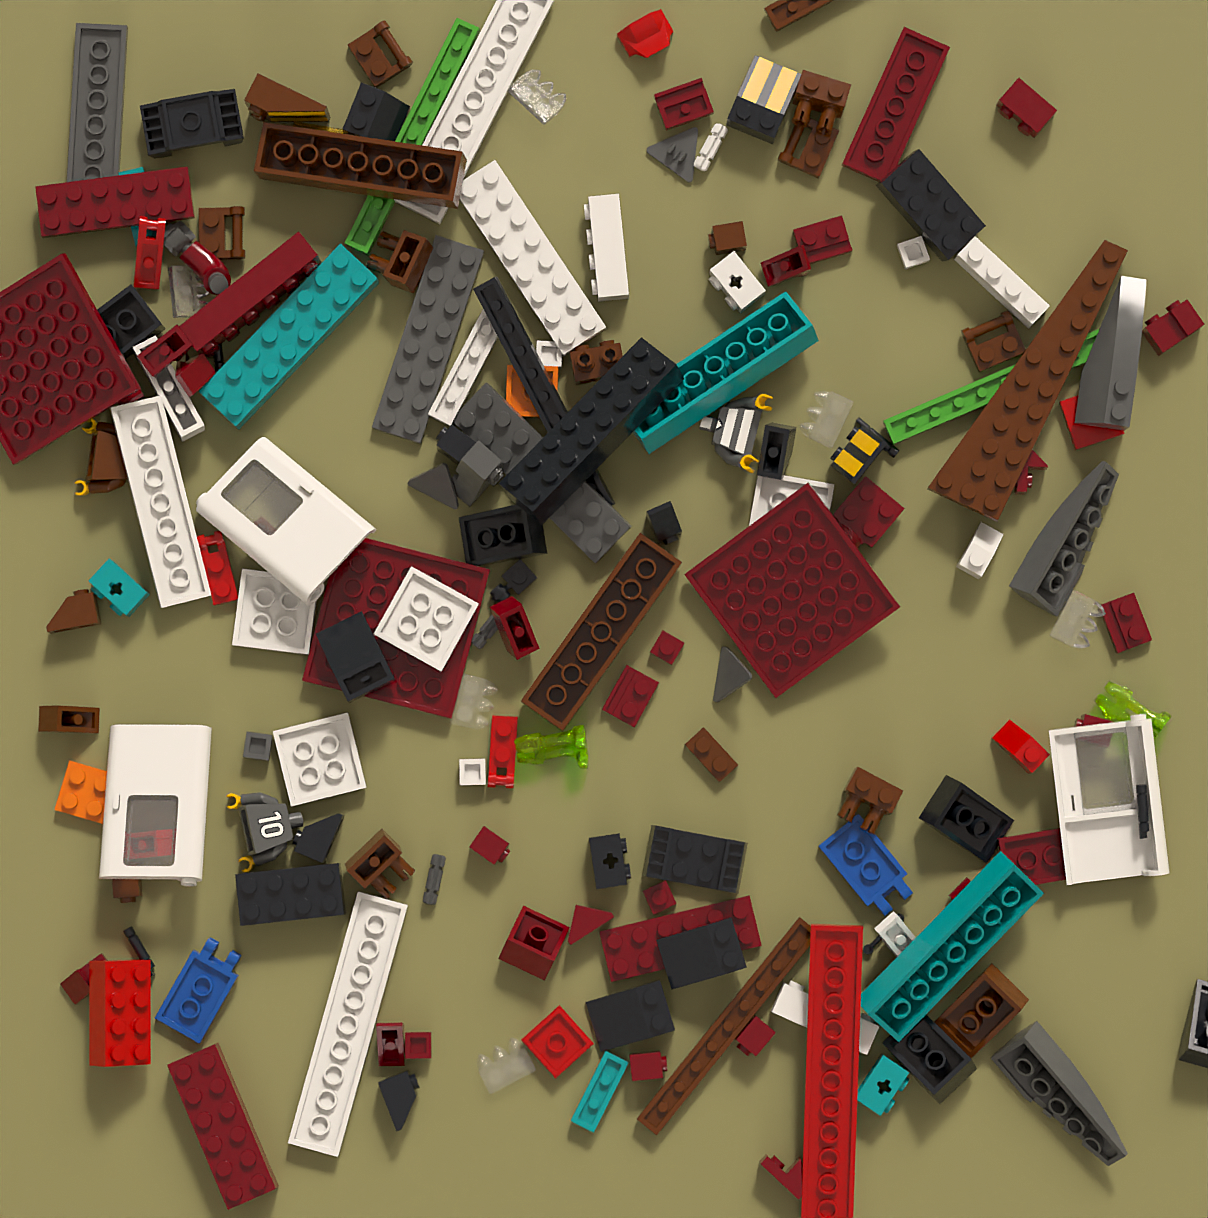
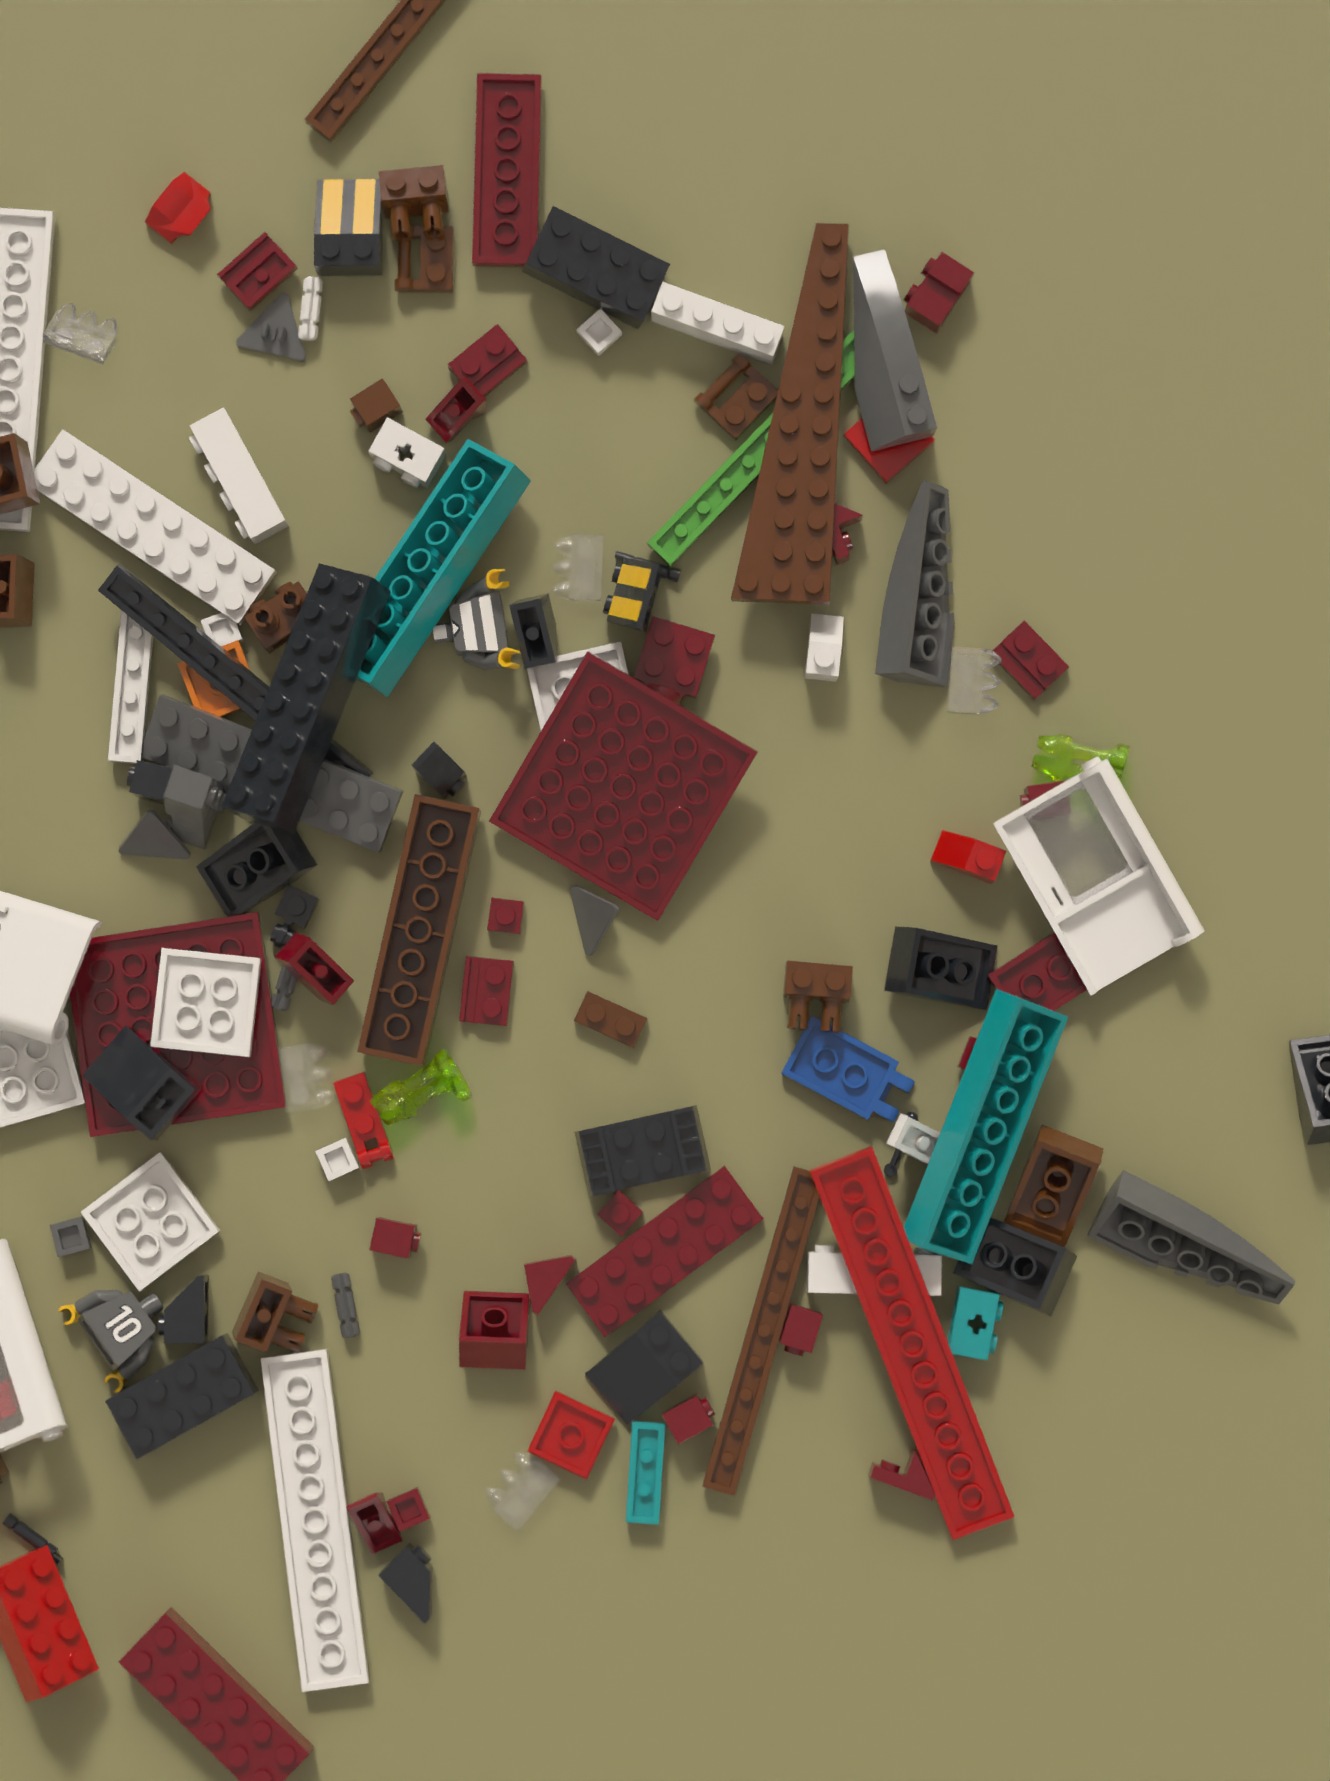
camera: 20 degrees left, 0 degrees up
(199, 992) = (122, 1557): blue tile -> none
(428, 339) = (72, 673): dark grey plate -> none
(603, 875) = (541, 1214): black brick -> none
(701, 953) = (696, 1259): black slope -> none
(1026, 108) = (660, 108): dark red brick -> none
(1142, 806) = (1142, 870): black wheel -> none

